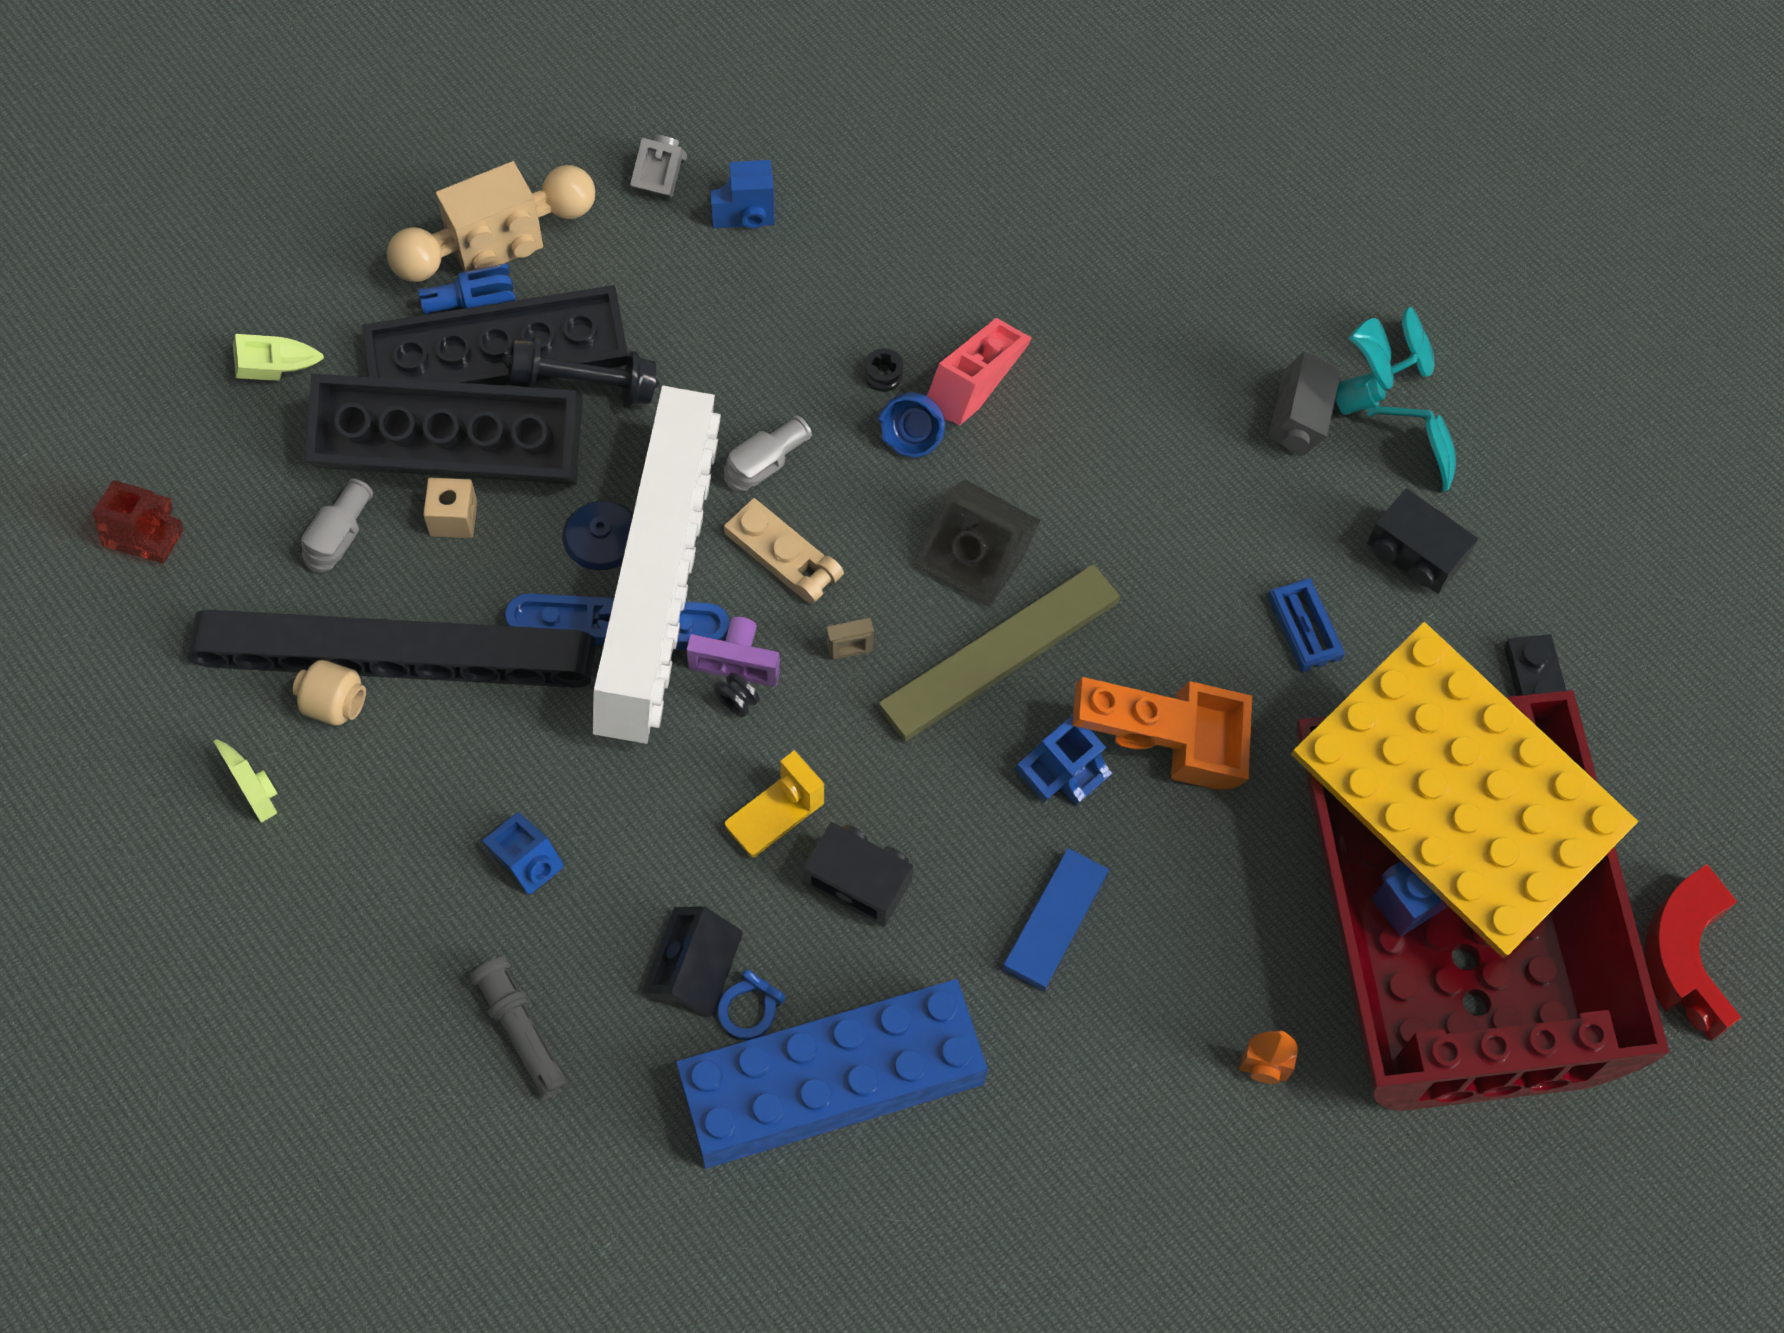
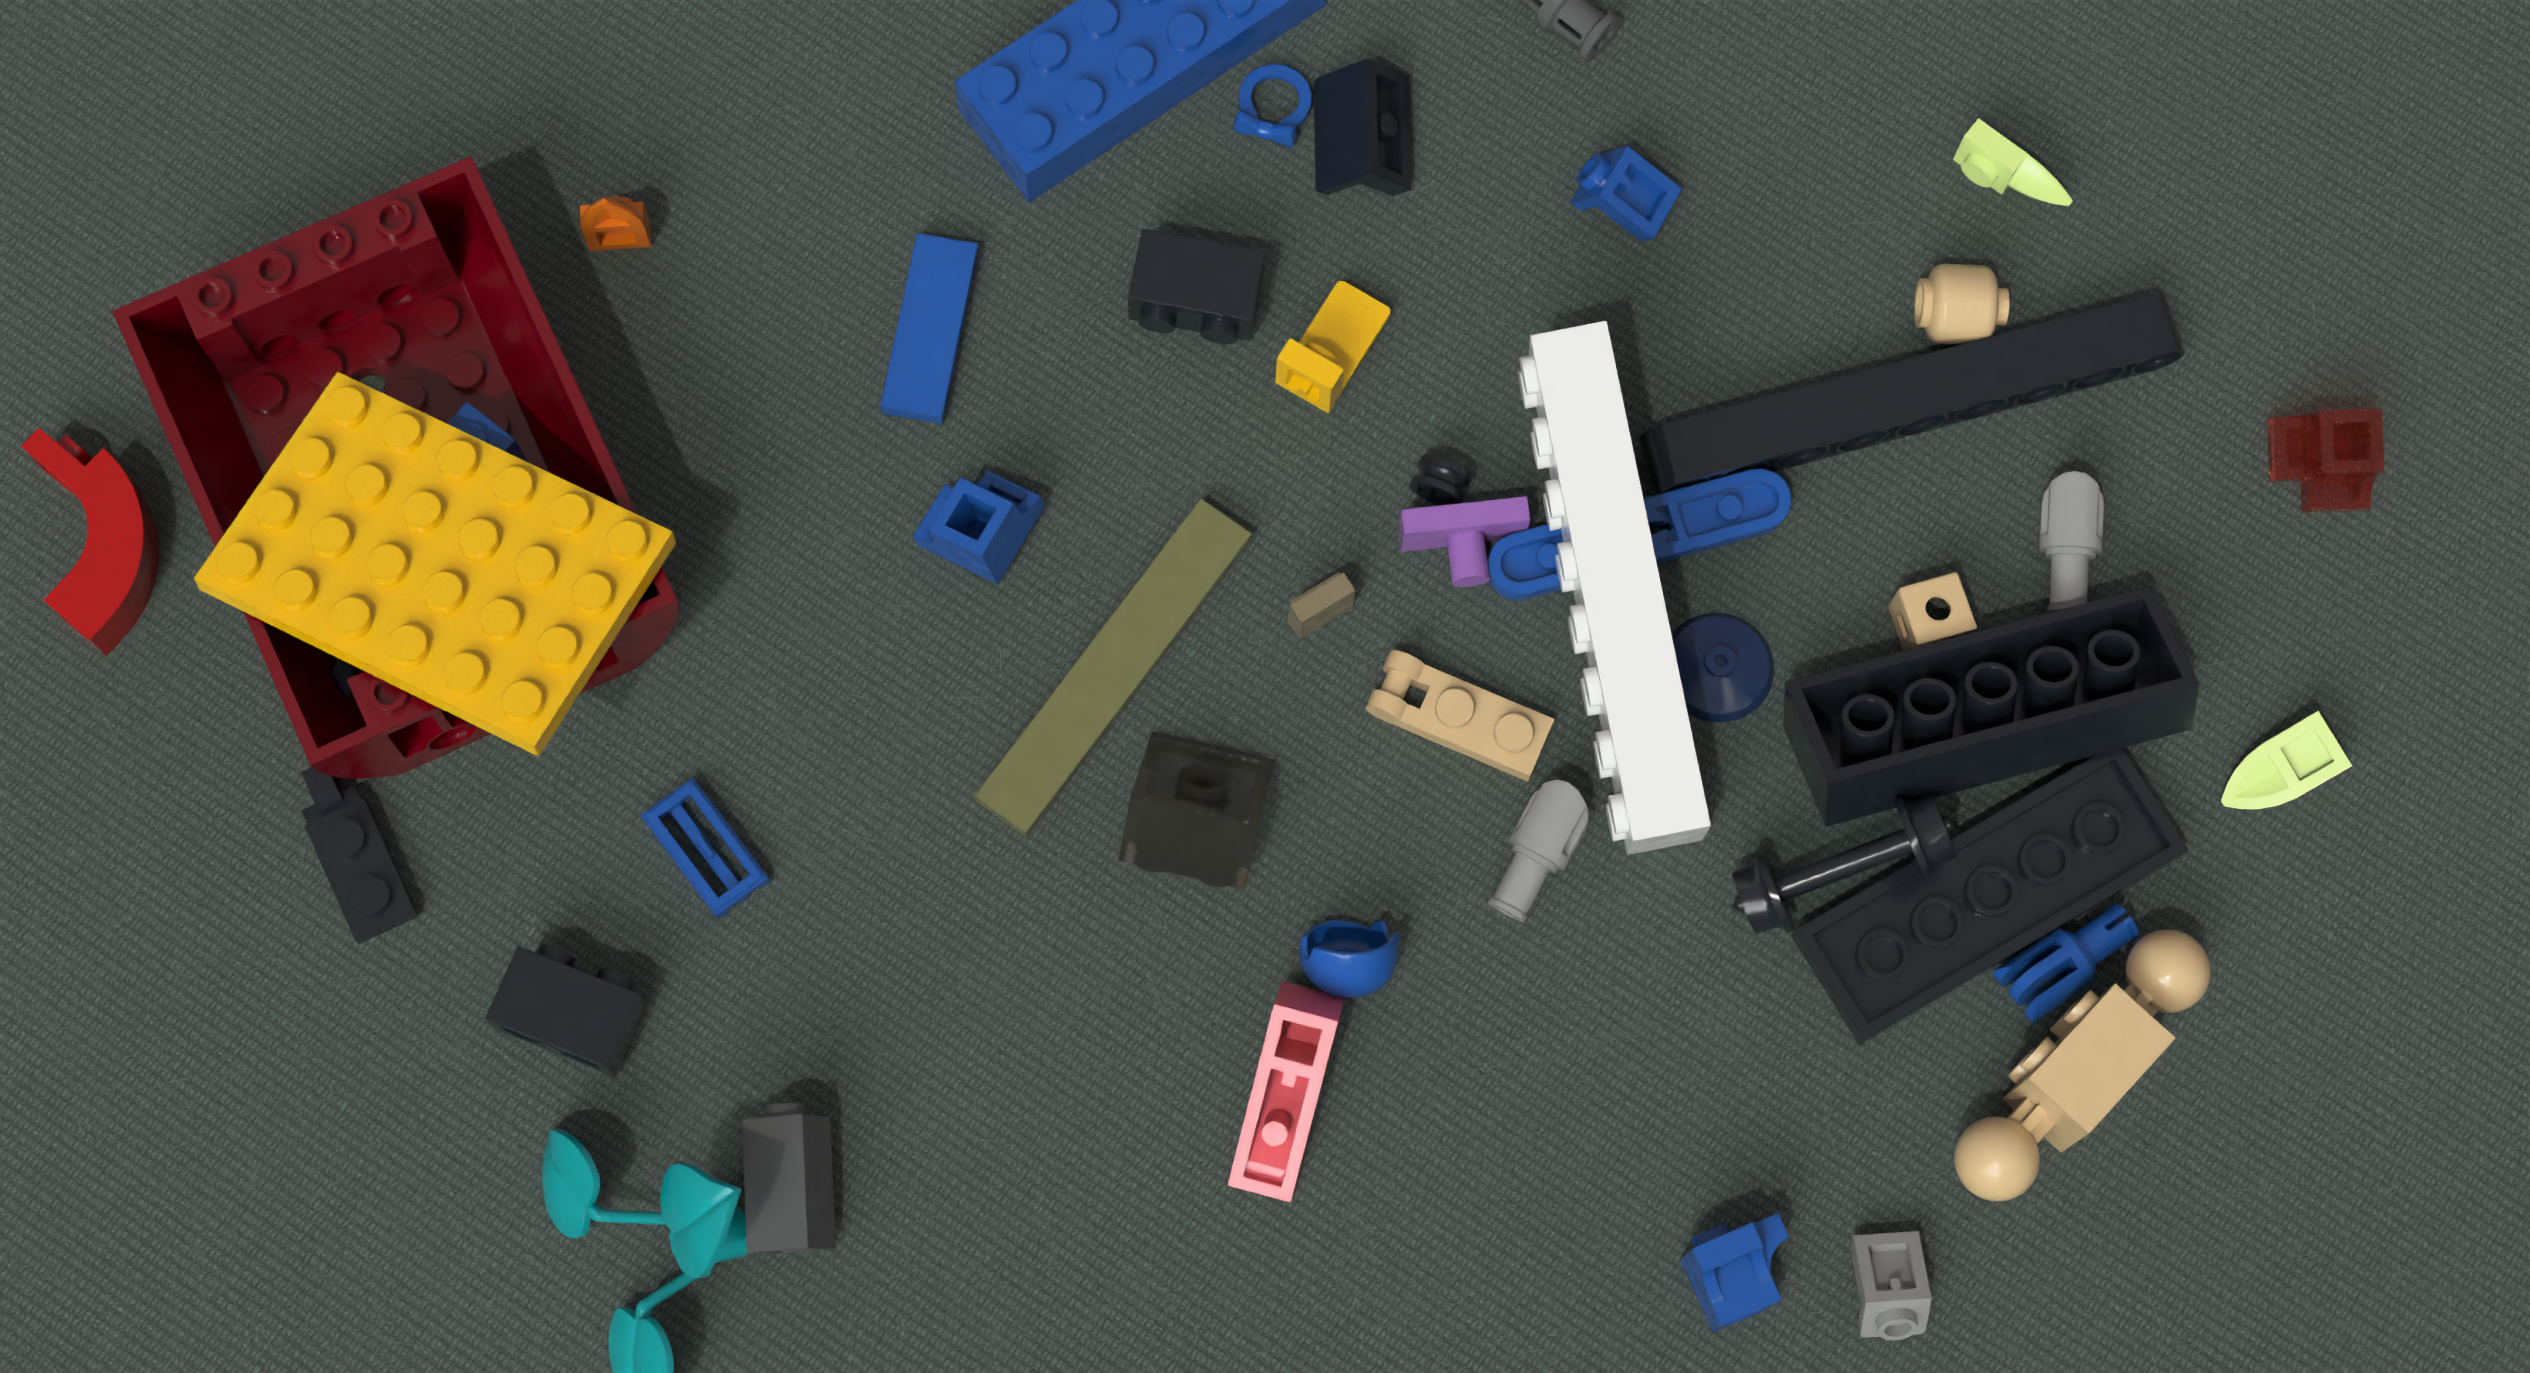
camera: 160 degrees right, 10 degrees up
(873, 364) = (1438, 1037): black bush -> none
(1202, 725) = (804, 612): orange plate -> none

